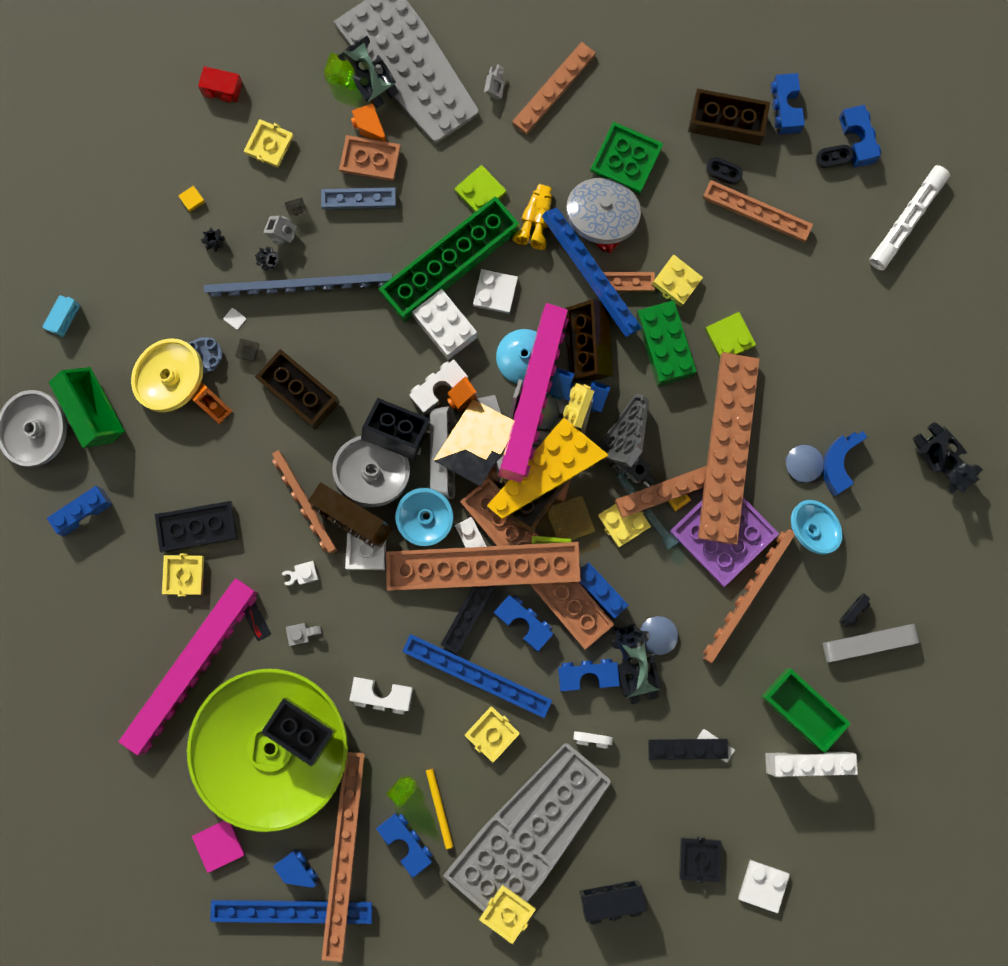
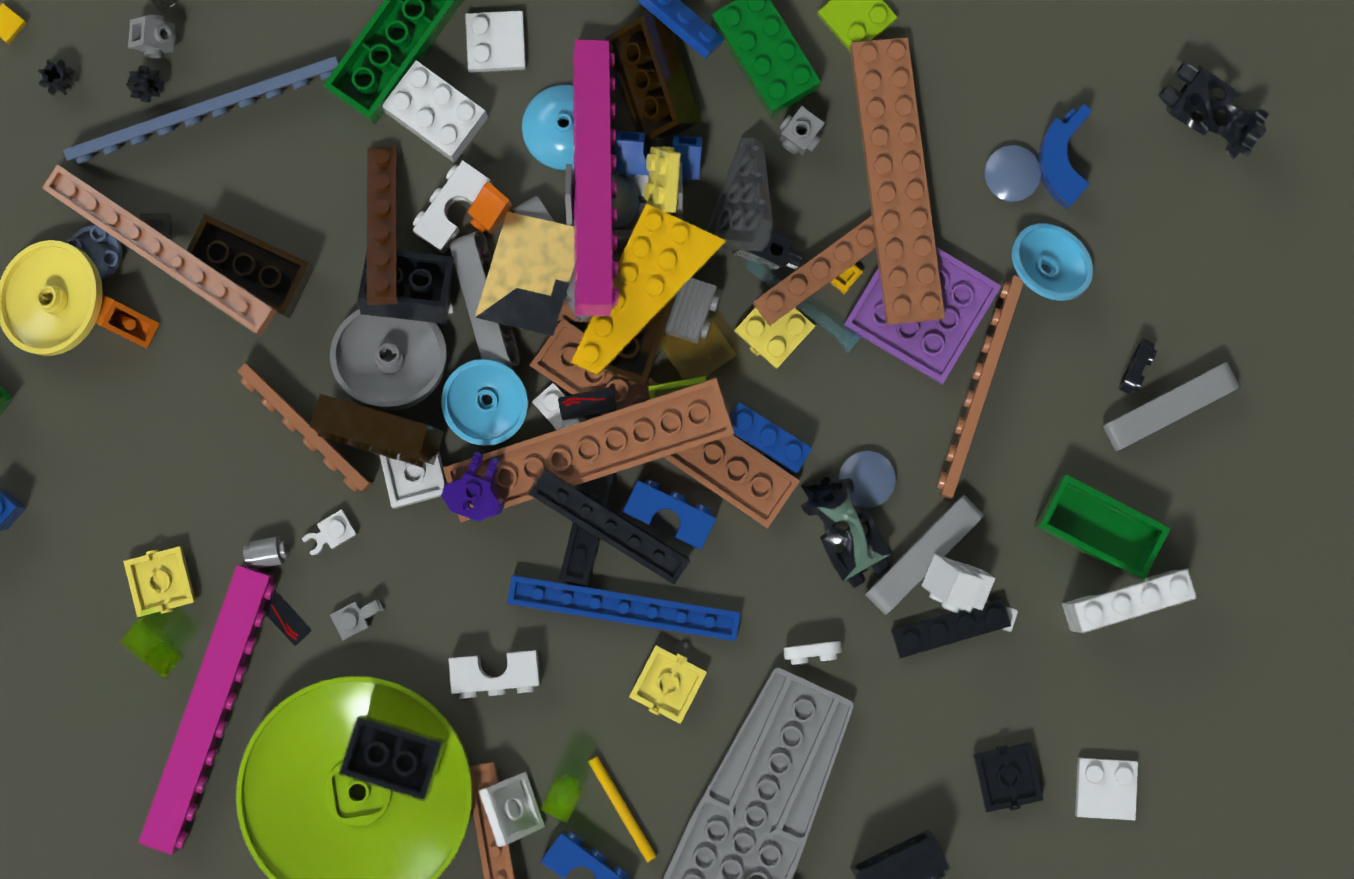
camera: 15 degrees left, 5 degrees up
(165, 616) = (152, 647): none -> clear neon green slope
(195, 526) = (157, 506): black plate -> none
(234, 318) = (123, 186): white sticker -> none
(245, 364) = (159, 250): none -> nougat plate
(256, 575) = (265, 553): none -> light grey brick
(367, 788) = (511, 809): none -> white plate
(390, 387) = (382, 226): none -> reddish brown plate
(403, 571) = (475, 488): none -> dark purple hinge
(482, 619) = (608, 526): none -> black plate
(489, 536) = (587, 403): none -> black sticker
(574, 494) = (692, 310): none -> light grey brick
(605, 672) = (805, 552): blue arch -> none
(678, 394) = (801, 122): none -> light grey brick
(683, 695) = (916, 560): none -> light grey beam
(700, 721) = (957, 584): none -> white brick

